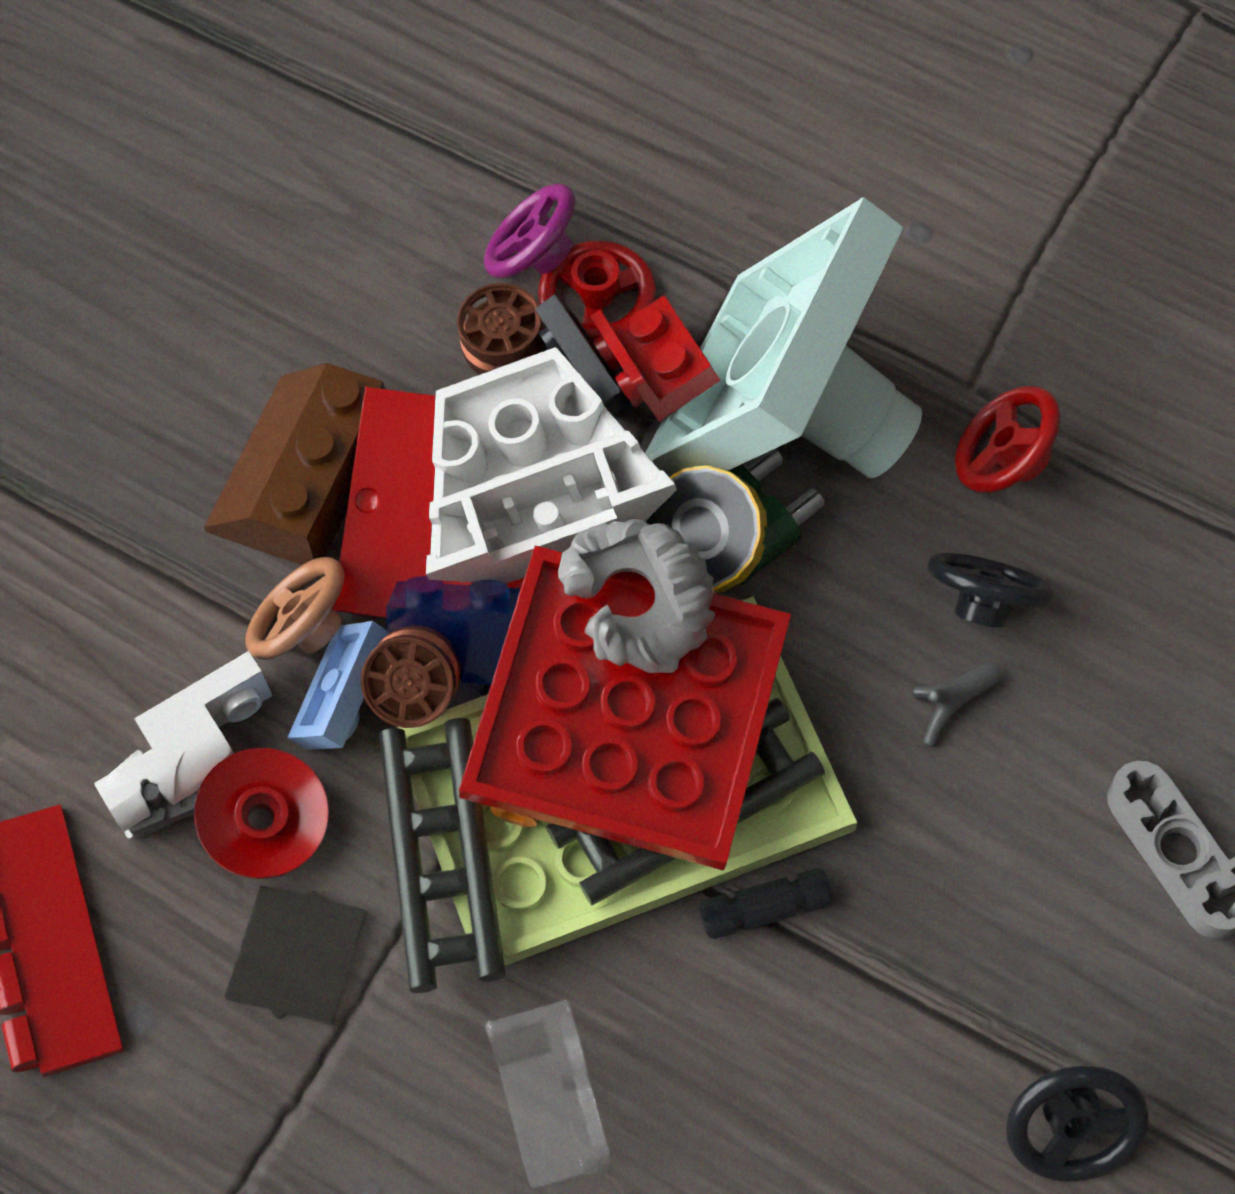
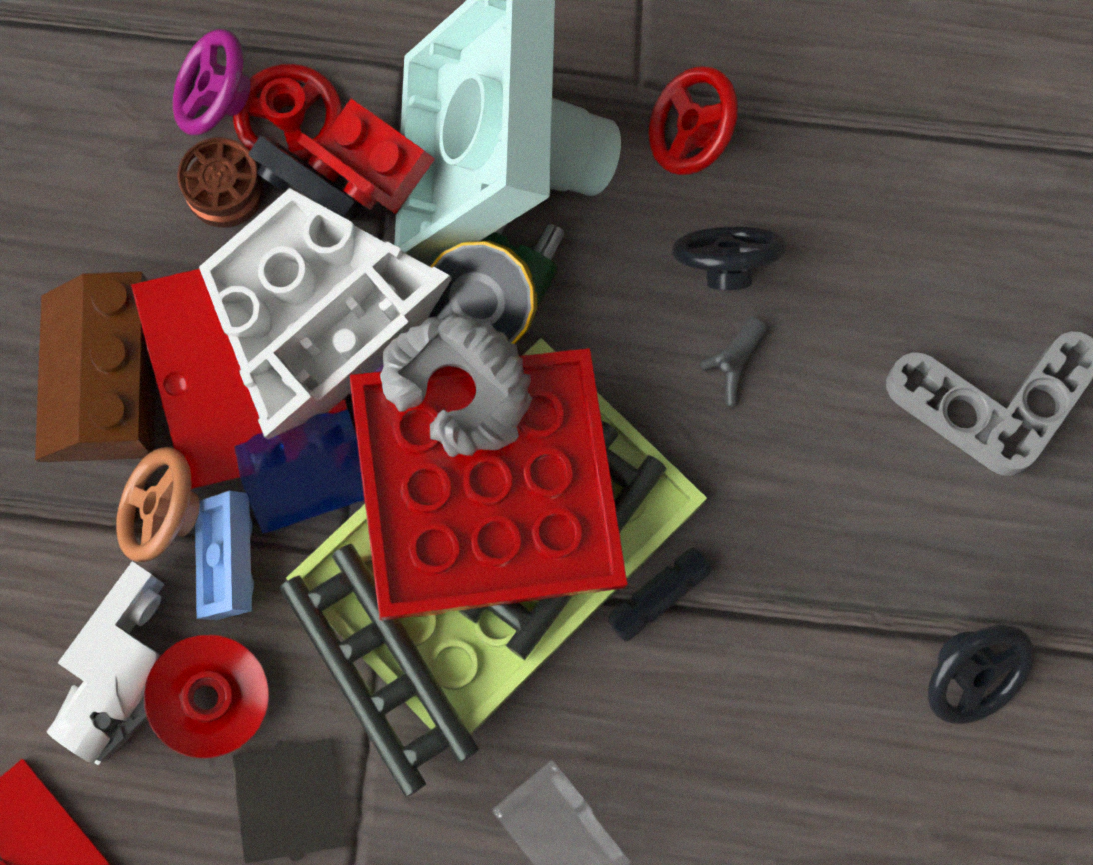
camera: 30 degrees left, 10 degrees up
(411, 675) = (285, 526): copper wheel -> none

